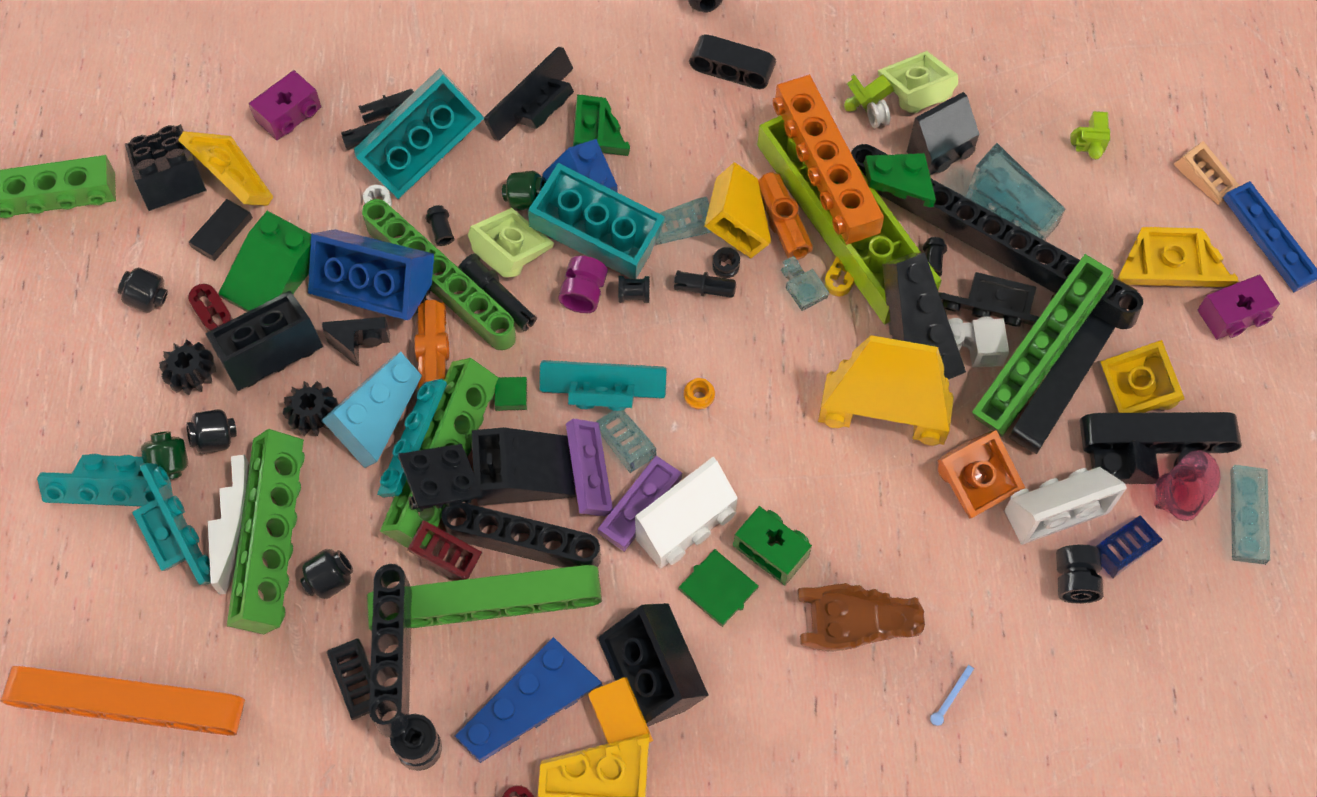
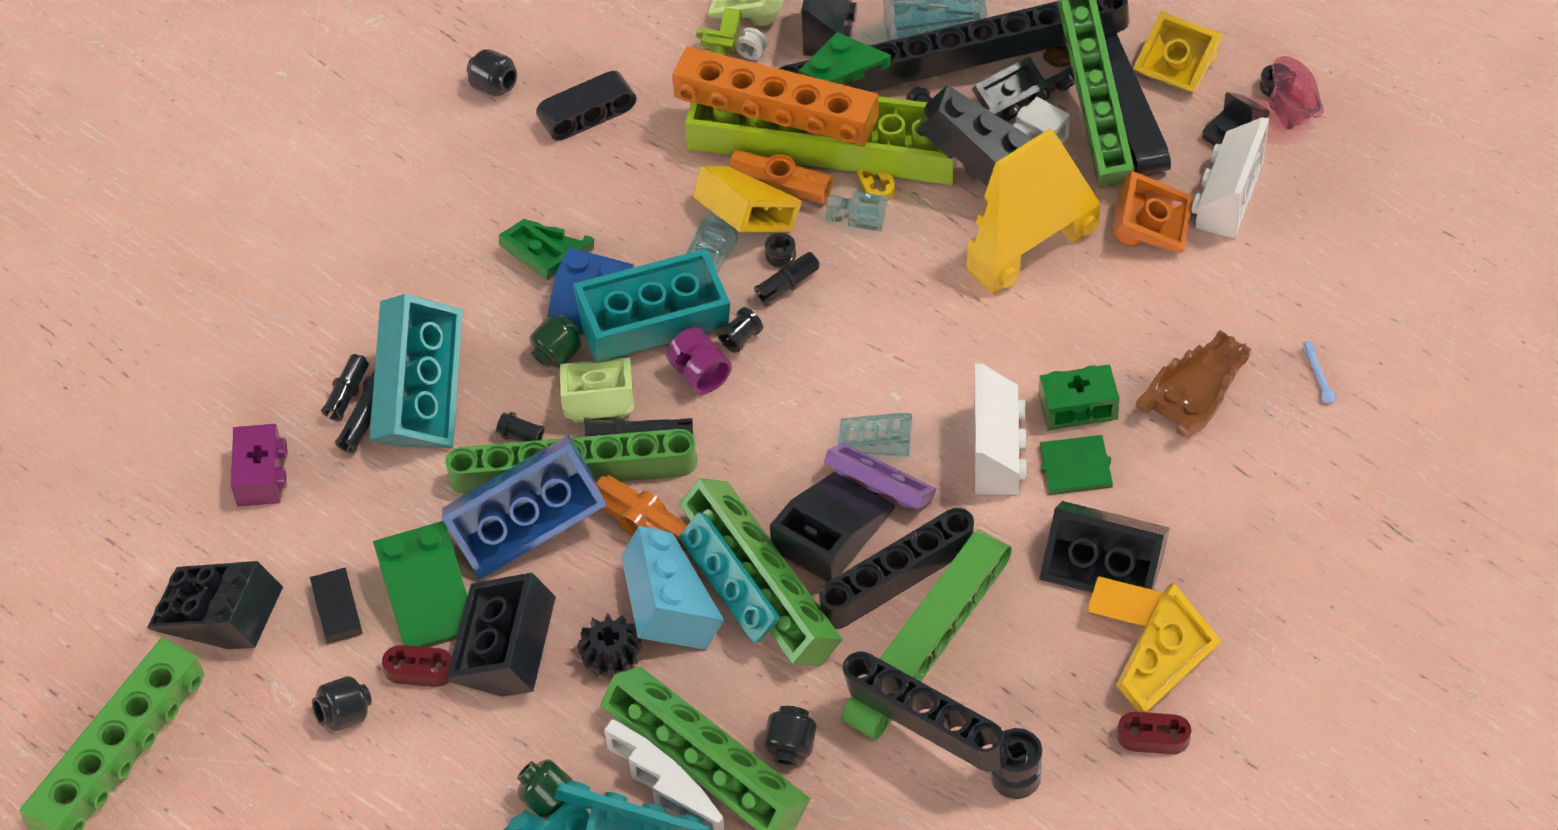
camera: 45 degrees left, 10 degrees down
(187, 367) = (465, 717): black gear -> none
(210, 431) = (553, 737): black head -> none
(229, 165) = (282, 549): yellow wing -> none
(343, 653) = (912, 767): black slope -> none
(349, 334) = (568, 568): black slope -> none
(375, 191) = (433, 469): white bush -> none
(439, 477) = (797, 572): black hinge -> none
(461, 548) = (866, 617): dark red slope -> none
(511, 393) = (750, 487): green tile -> none
(532, 696) = (1048, 656): blue wing -> none
(533, 97) = (466, 267): black bracket -> none
(602, 383) = (807, 414): teal bracket -> none
(650, 485) = (948, 462): medium lavender plate -> none
(699, 385) = (886, 346): light orange plate -> none
(1079, 574) = (1303, 216): black wheel -> none
(1111, 562) = (1303, 189): clear blue slope -> none
(1162, 431) = (1234, 73): black beam -> none
(1250, 514) = (1352, 75): clear light blue plate -> none

